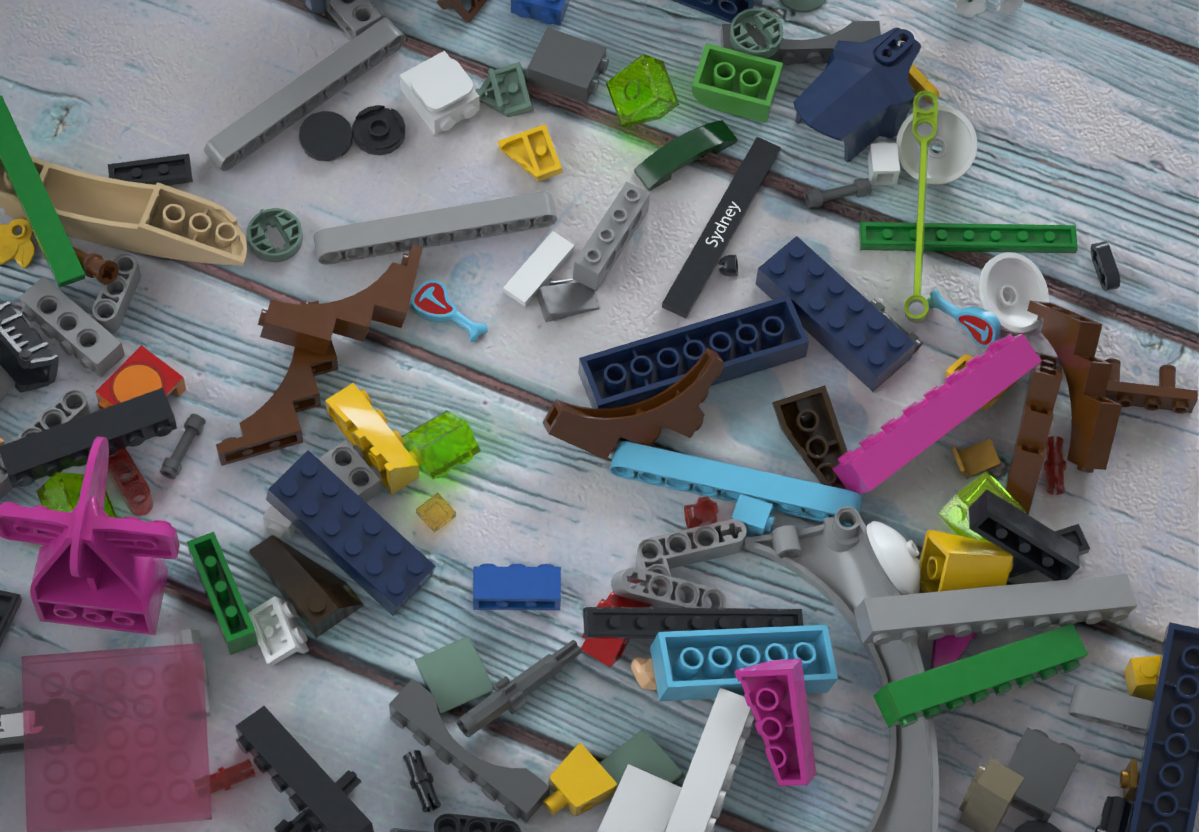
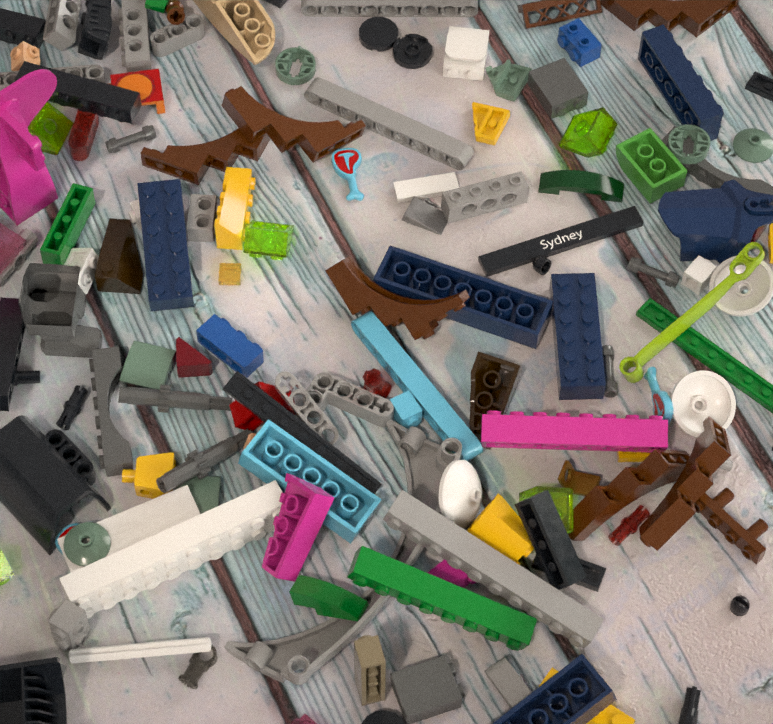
camera: 45 degrees right, 5 degrees down
(314, 690) = (52, 307): none -> dark grey piece
(492, 635) = (190, 361): none -> dark red slope
(616, 731) = (200, 463): none -> dark grey piece
(868, 764) = (327, 599): none -> green slope

